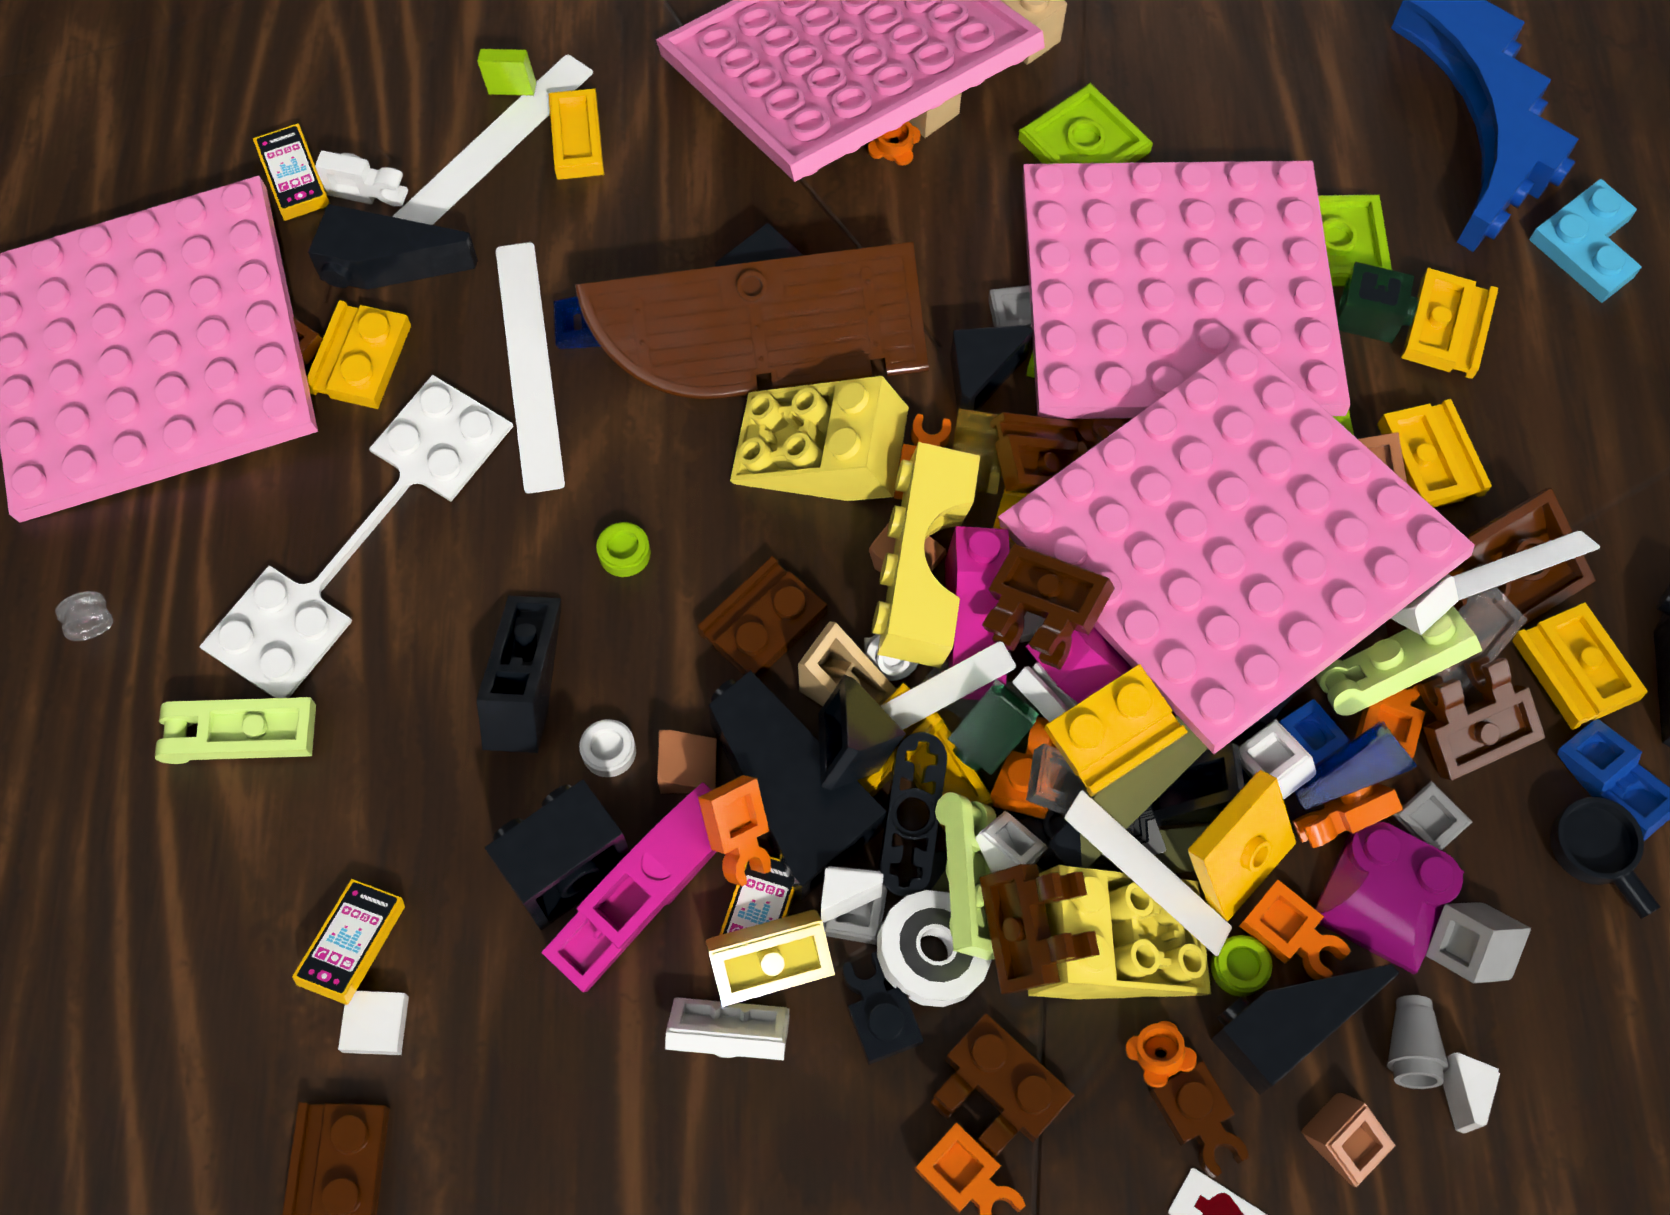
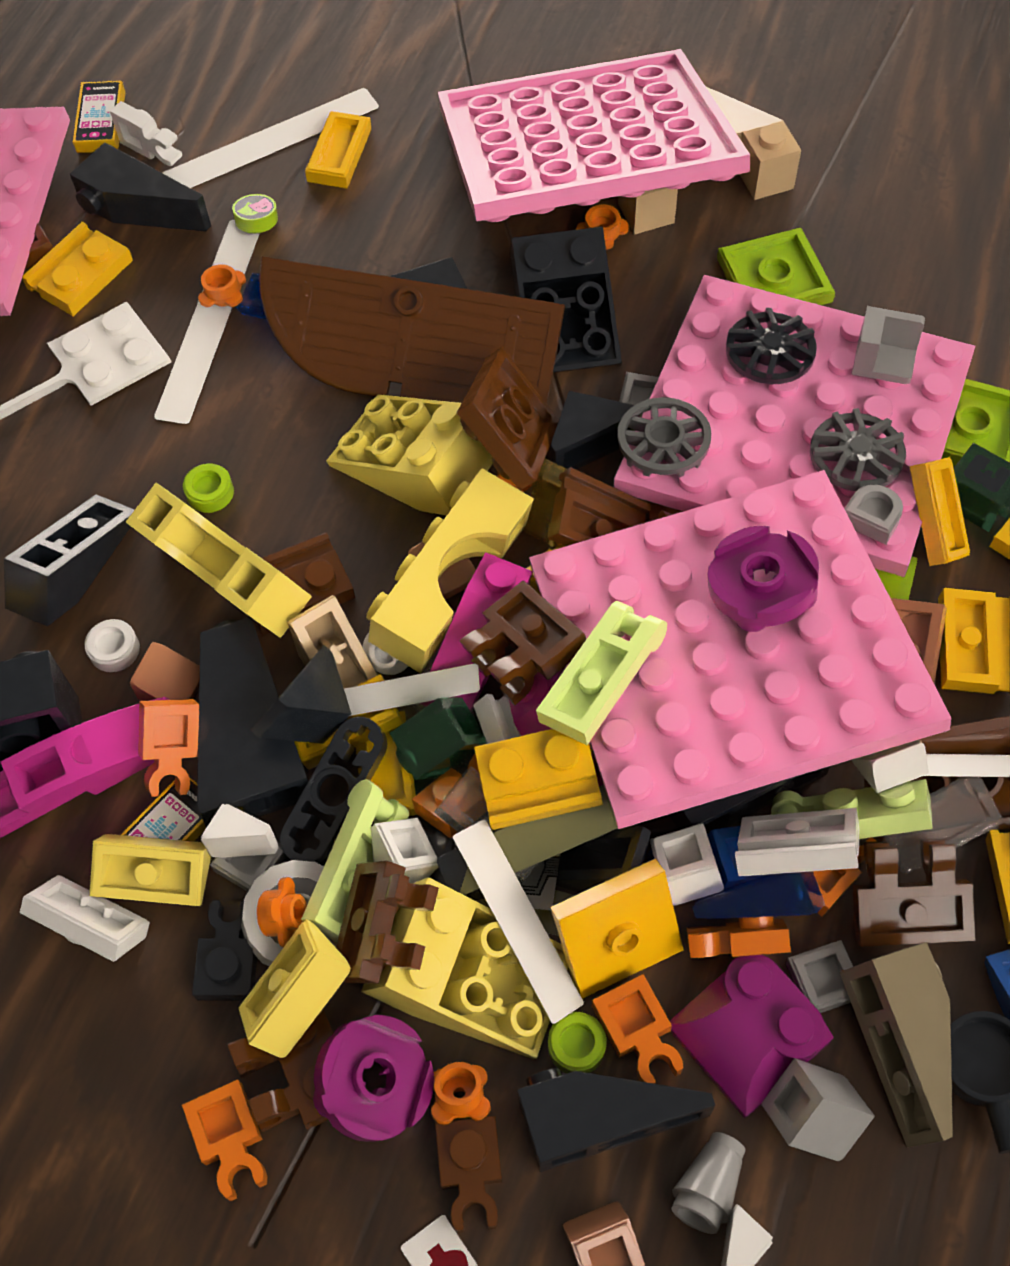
camera: 25 degrees right, 5 degrees down
(507, 72) = (303, 84): lime tile -> none
(524, 233) = (255, 213): none -> tile
(526, 317) = (221, 286): none -> orange plate
(691, 624) = (219, 560): none -> light yellow arch
(896, 206) = (572, 272): none -> black slope
(917, 381) = (508, 419): none -> reddish brown plate
(931, 950) = (280, 911): none -> orange plate
(976, 1019) = (293, 991): none -> light yellow slope
(1054, 1074) = (340, 1085): none -> magenta plate
(1073, 350) = (664, 437): none -> dark grey wheel
(1130, 223) = (771, 346): none -> black wheel
(1139, 612) = (600, 672): none -> yellowish green plate
(1239, 189) = (888, 345): none -> light grey panel
(1248, 494) = (769, 602): none -> magenta plate
(1260, 305) = (858, 449): none -> dark grey wheel
(1305, 362) = (875, 512): none -> light grey tile
(1353, 340) = (940, 511): none -> yellow tile
(1376, 706) = (798, 842): none -> white plate
(1530, 847) = (909, 1037): none -> dark tan slope

